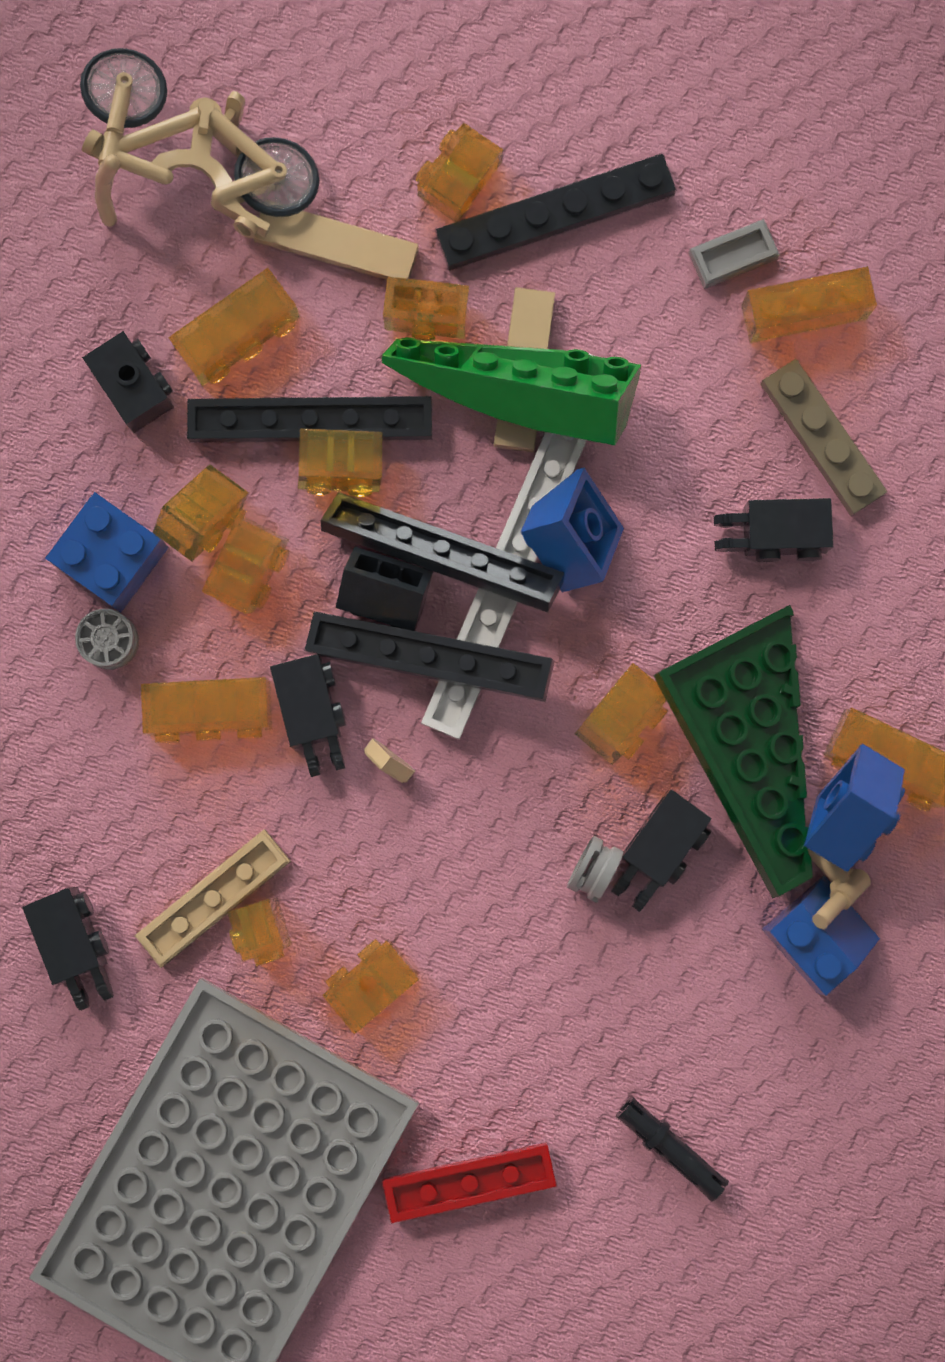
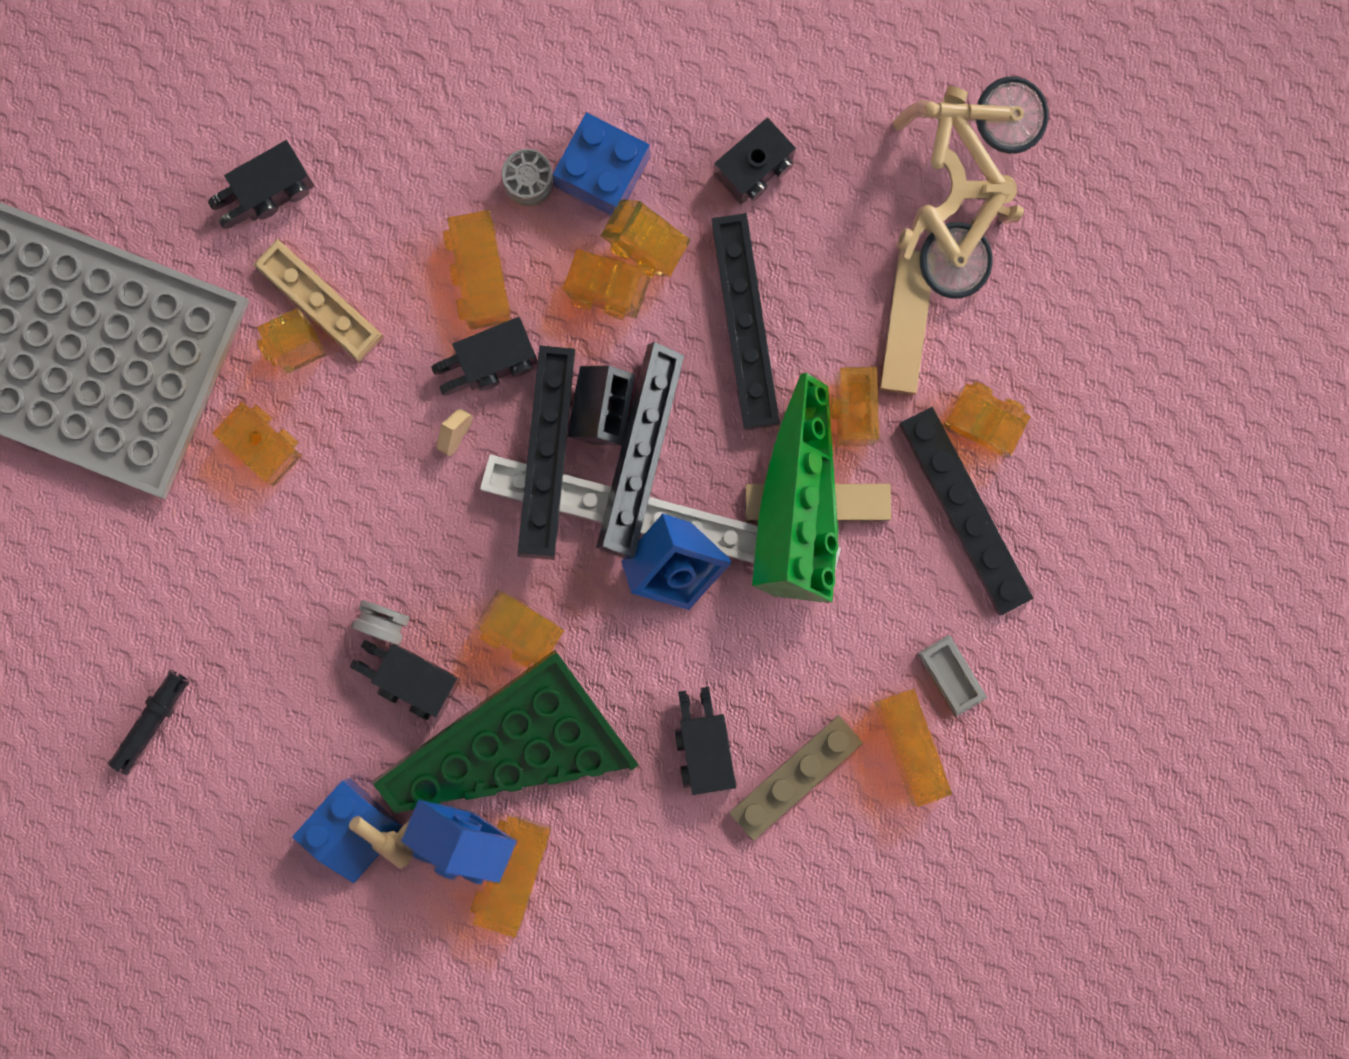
camera: 75 degrees right, 0 degrees up
(235, 328) = (815, 245): clear yellow brick -> none
(340, 461) = (708, 351): clear yellow brick -> none
(469, 1182) = (101, 551): red plate -> none

